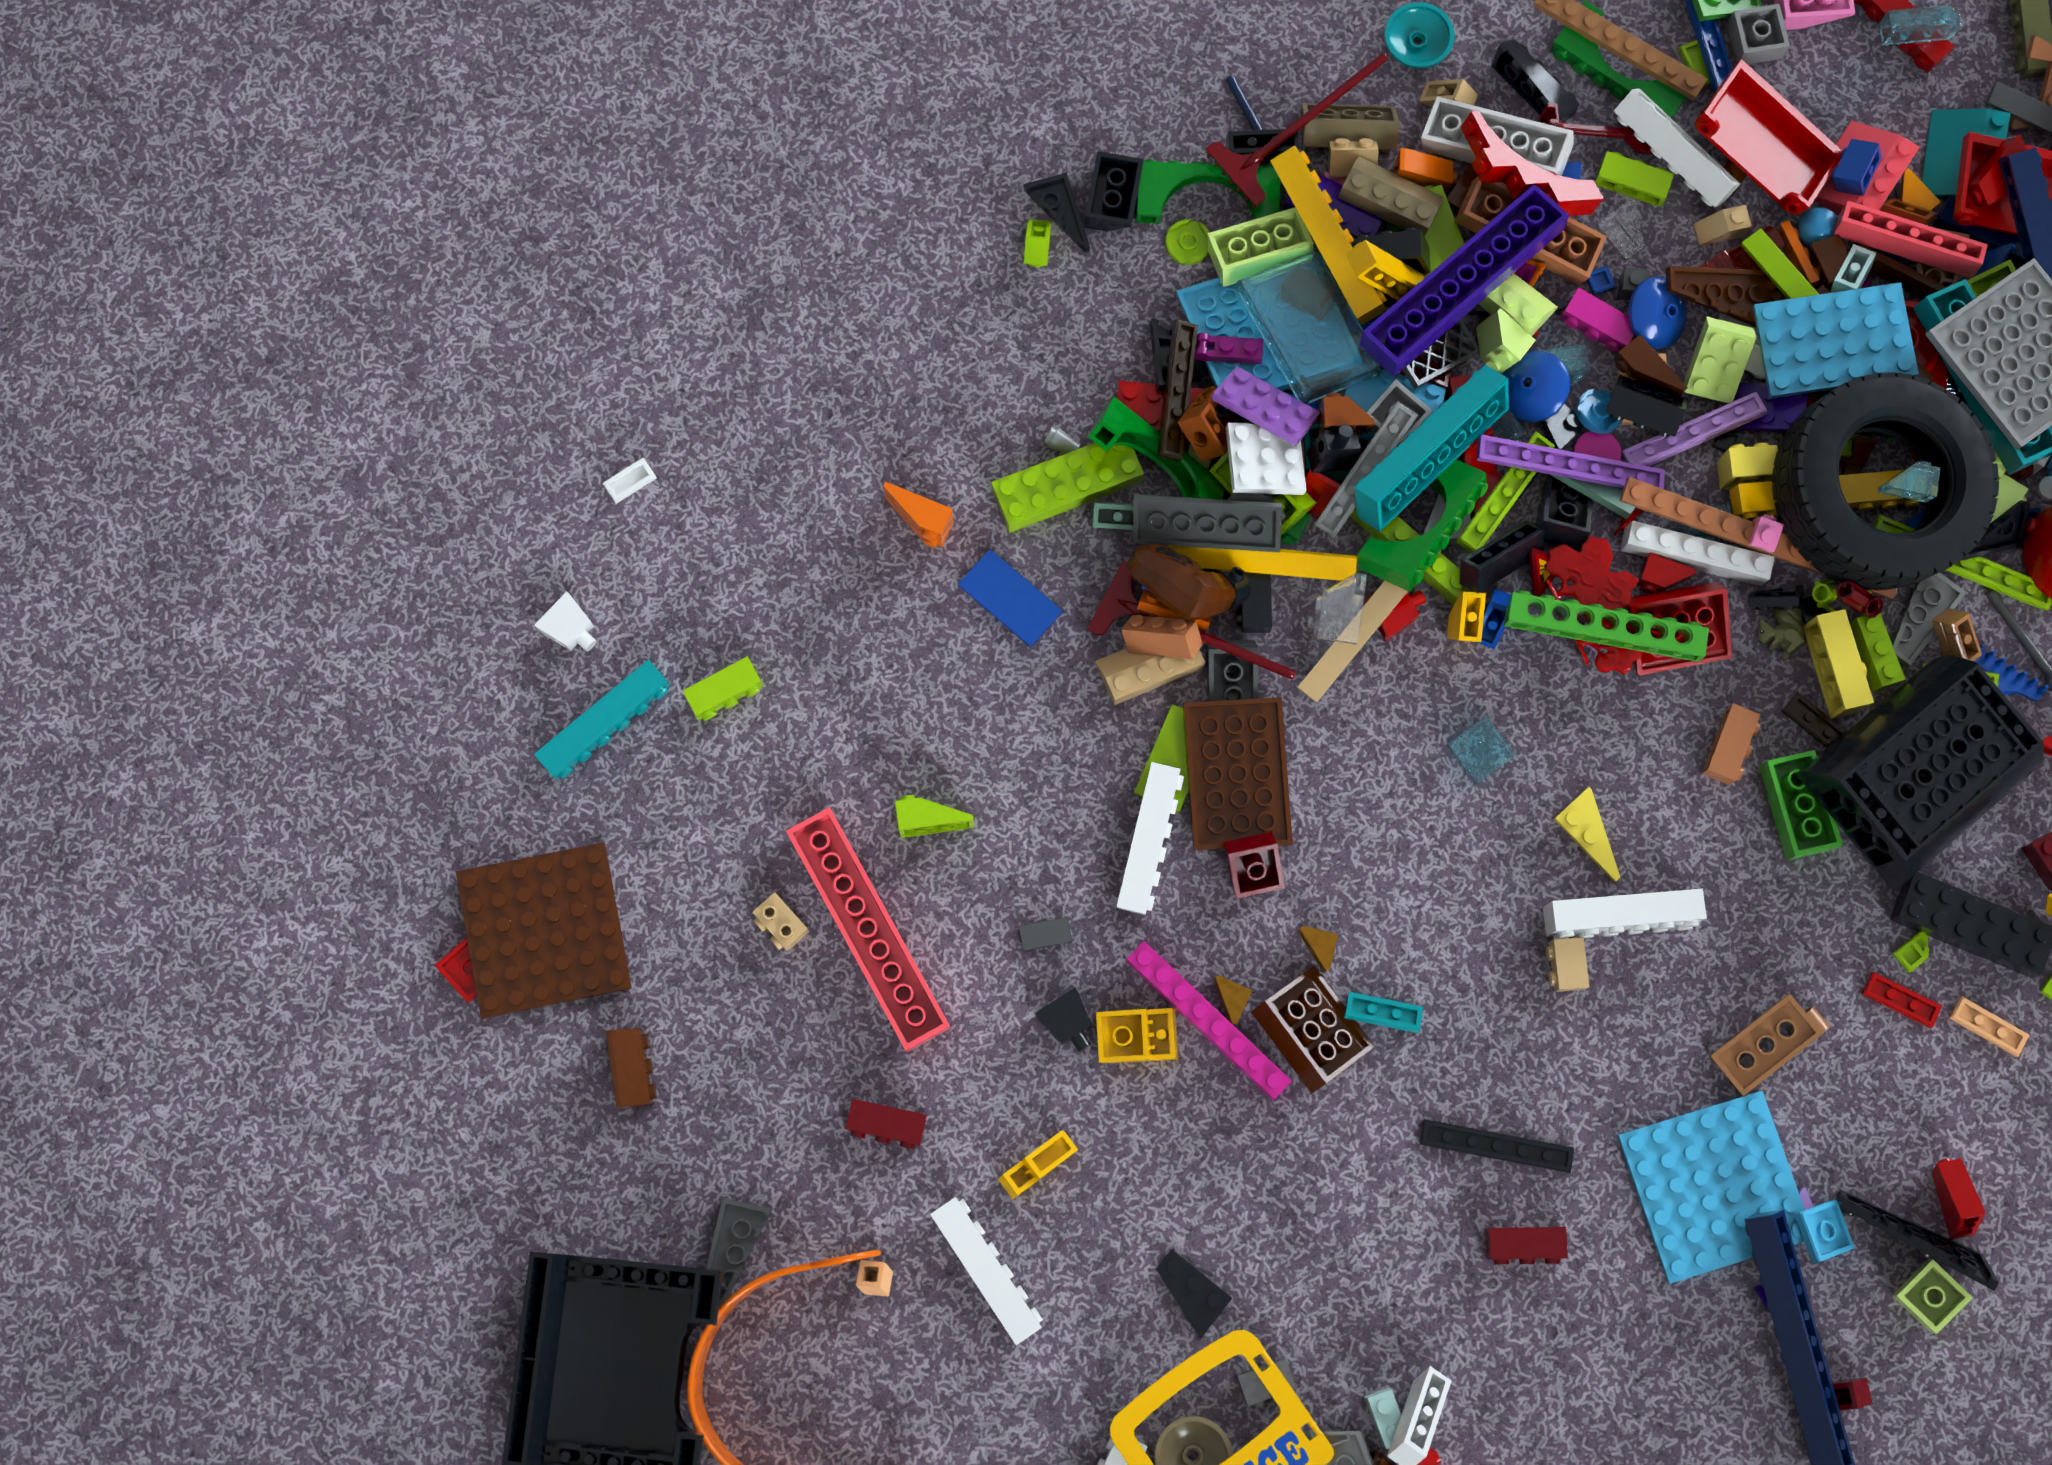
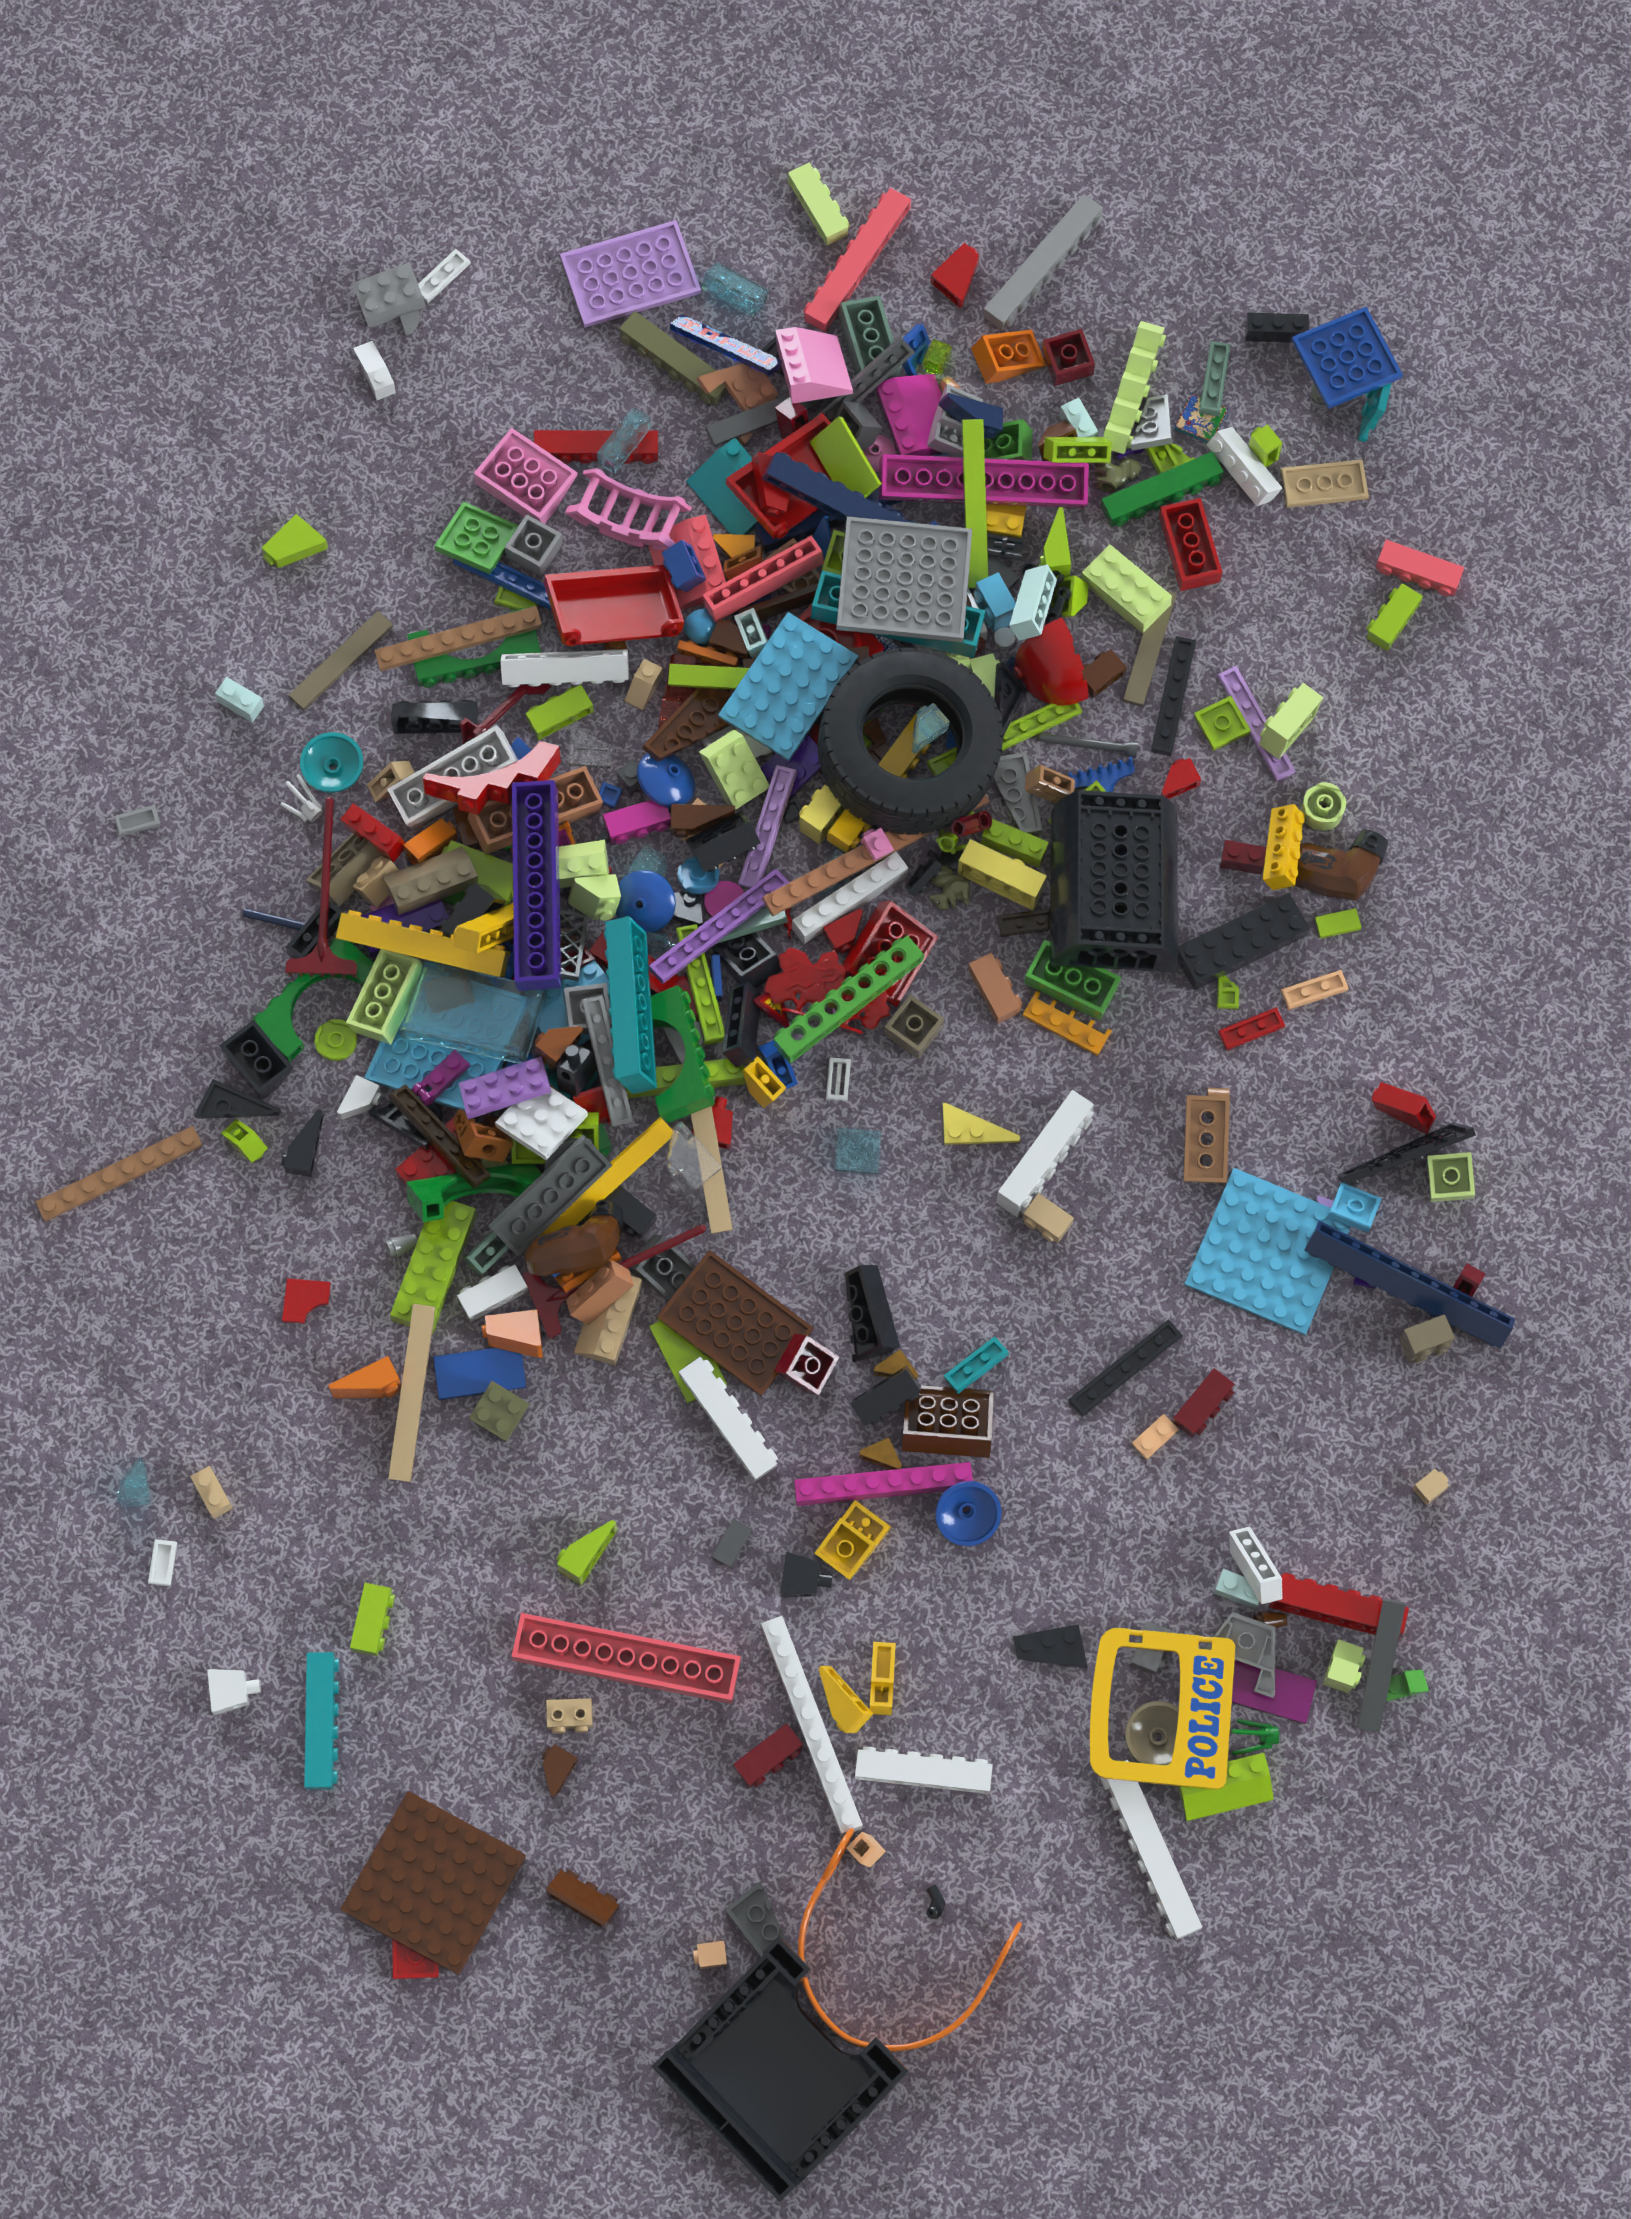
camera: 50 degrees left, 5 degrees down
(673, 403) = (134, 1486): none -> clear light blue slope
(673, 1219) = (710, 1955): none -> light nougat brick
(719, 468) = (211, 1492): none -> tan brick
(725, 951) = (557, 1768): none -> reddish brown slope
(880, 1381) = (937, 1904): none -> black arm
(923, 169) = (118, 1173): none -> medium nougat plate
(942, 556) = (412, 1392): none -> tan tile
(943, 1138) = (811, 1725): none -> white brick
(947, 401) = (303, 1297): none -> red tile
(986, 1151) = (844, 1704): none -> yellow slope
(988, 642) = (499, 1411): none -> olive brick
(1068, 597) = (514, 1332): none -> slope
(1072, 294) = (303, 1149): none -> black slope
(1085, 550) = (492, 1292): none -> white brick
(1155, 301) = (359, 1098): none -> white slope
(1244, 1131) = (971, 1526): none -> blue dish
(1286, 958) = (886, 1396): none -> black brick
(1347, 882) = (870, 1314): none -> black wedge
(1364, 53) = (311, 810): none -> white plant
(1390, 115) = (369, 828): none -> red arch
(1458, 1224) = (1155, 1436): none -> light nougat plate
(1512, 691) = (837, 1097): none -> white tile
(1523, 502) = (715, 970): none -> blue tile
(1634, 704) = (914, 1026): none -> dark tan brick
(1754, 834) = (1065, 1025): none -> light orange hinge
(1762, 1399) = (1427, 1339): none -> dark tan brick
(1838, 96) = (622, 532): none -> bright pink fence

